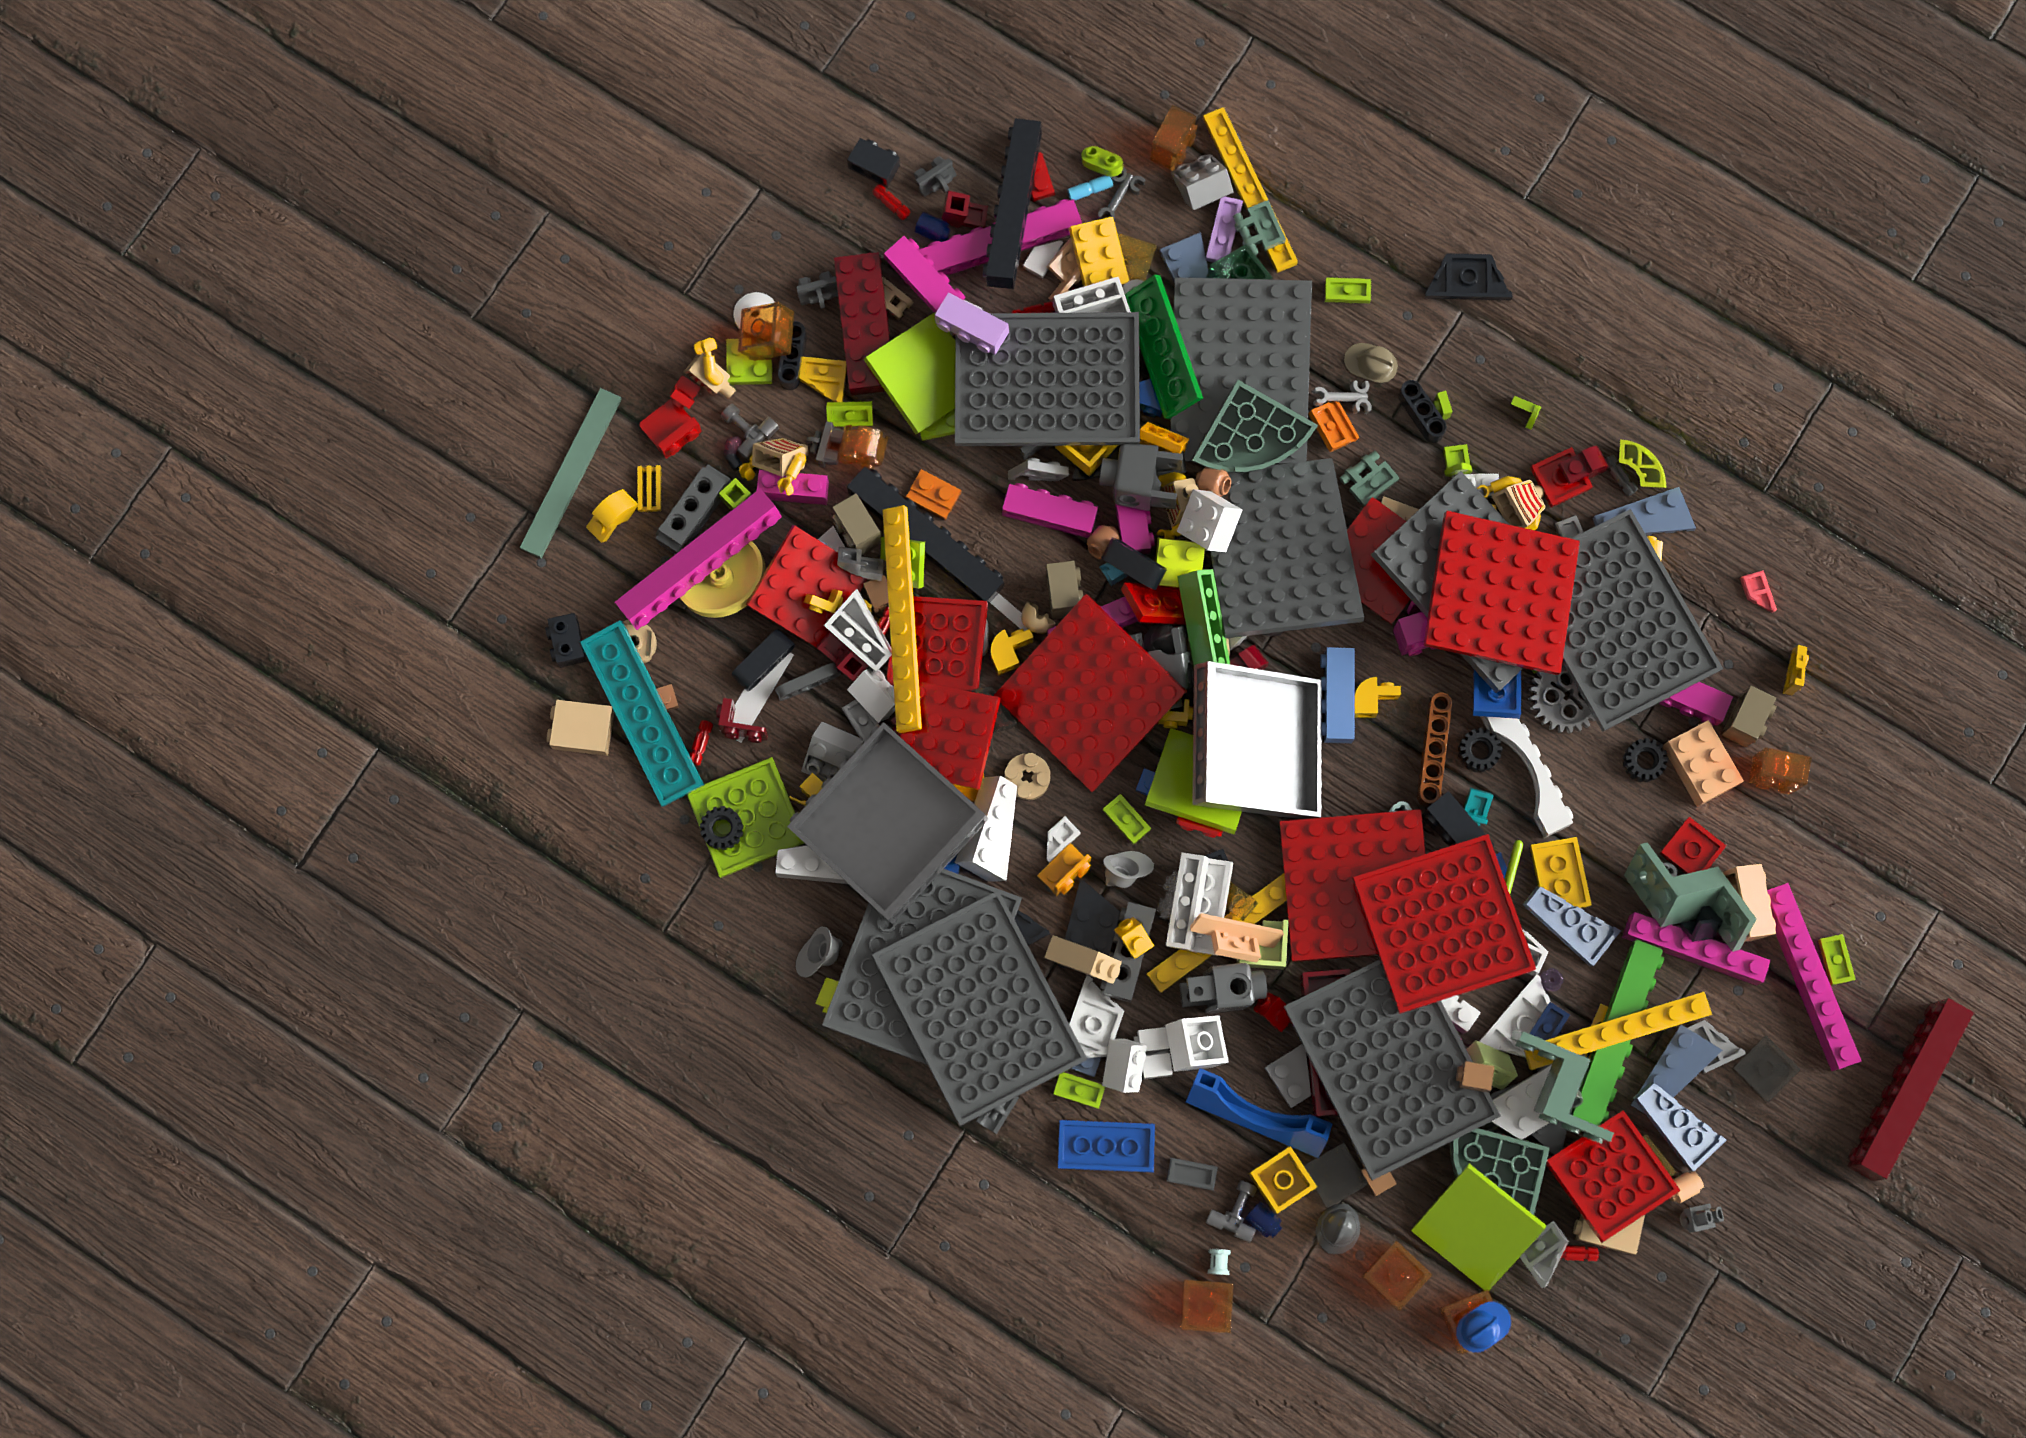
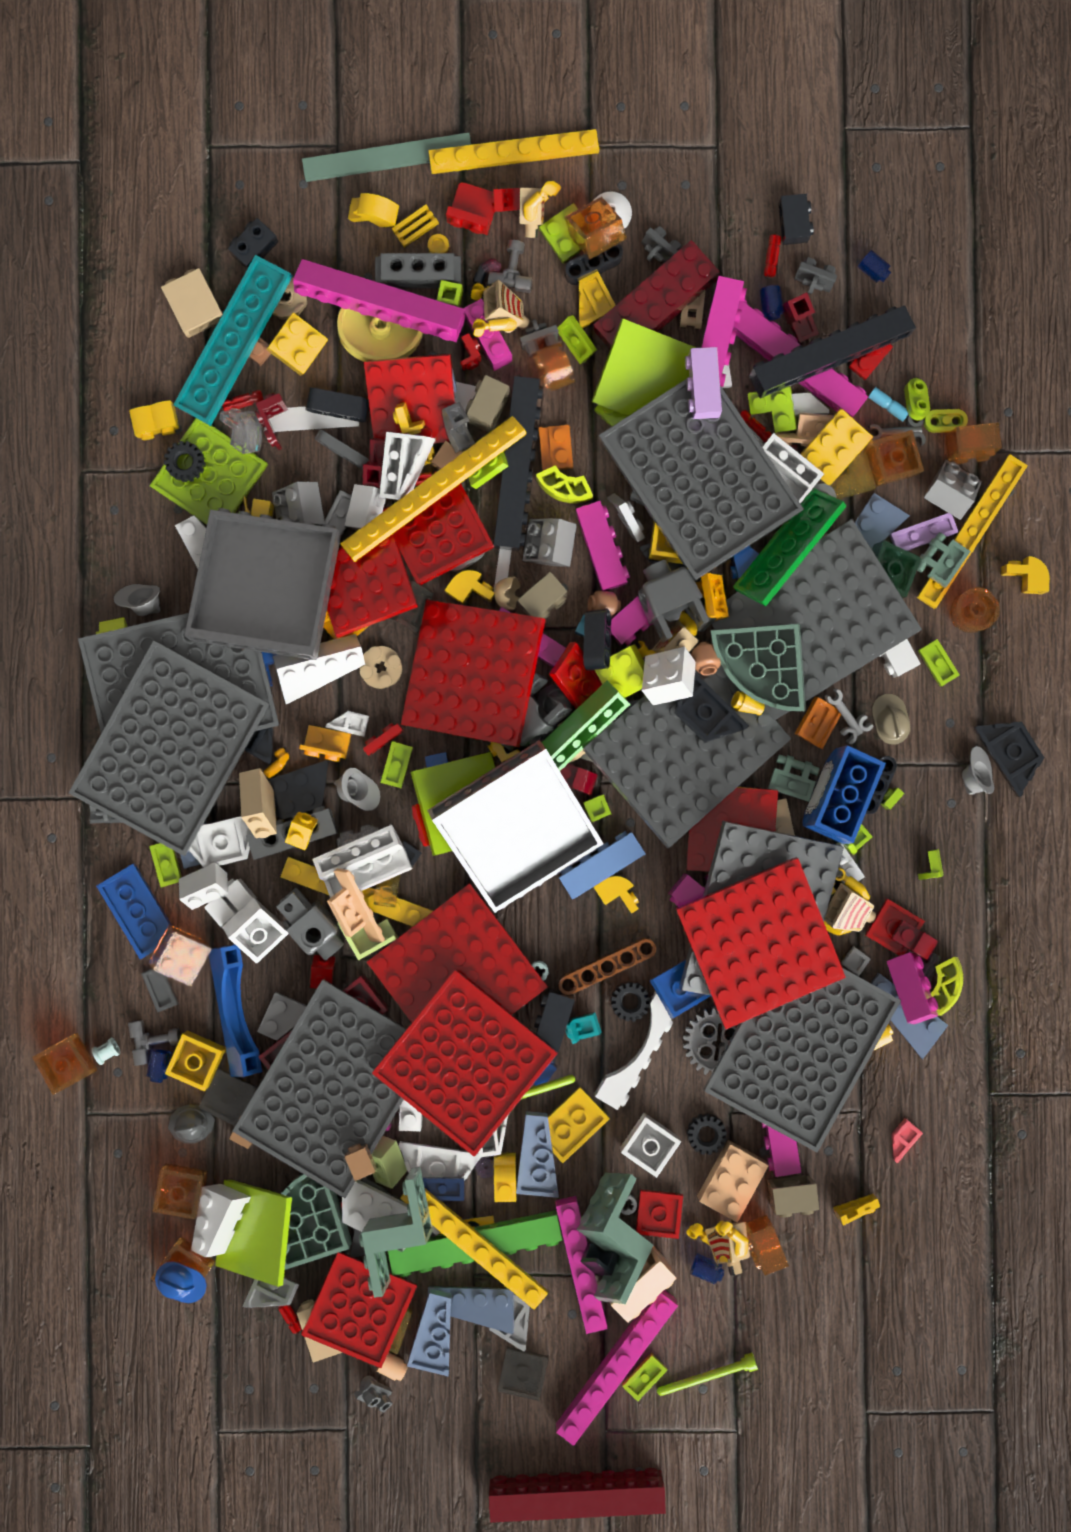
camera: 55 degrees right, 10 degrees up
(644, 361) = (513, 151): none -> yellow plate
(663, 832) = (154, 420): none -> yellow brick
(680, 479) = (438, 244): none -> yellow tile
(685, 658) = (297, 344): none -> yellow brick
(730, 752) = (246, 429): none -> clear brick
(795, 508) = (472, 347): none -> red bracket
(962, 123) = (875, 267): none -> clear blue brick
(976, 508) = (563, 487): none -> neon yellow brick
(1015, 553) = (549, 542): none -> light grey slope
(1029, 278) = (779, 404): none -> lime plate
(1055, 924) = (278, 765): none -> light orange arm
(1094, 826) = (374, 743): none -> red plate
(1137, 151) = (944, 420): none -> lime plate
(1142, 212) = (894, 458): none -> clear orange brick
(1175, 1129) = (180, 955): none -> clear orange brick
(1265, 510) = (708, 713): none -> black wing
(1276, 473) = (746, 704): none -> yellow cone
(1284, 663) = (597, 808): none -> lime plate
(1317, 241) = (981, 600): none -> clear orange brick
(1320, 161) = (1033, 572): none -> yellow brick
(1324, 320) = (900, 659): none -> white piece
(1412, 441) = (843, 794): none -> blue brick
(1444, 1255) = (216, 1219): none -> white wedge
(1469, 319) = (978, 773): none -> light grey piece
(1572, 964) = (505, 1177): none -> yellow brick
(1623, 814) = (650, 1145): none -> white brick
(1626, 492) = (913, 988): none -> dark pink brick
(1756, 803) = (726, 1241): none -> torso
(1770, 839) = (707, 1269): none -> clear blue brick
(1880, 859) = (746, 1363): none -> lime piece

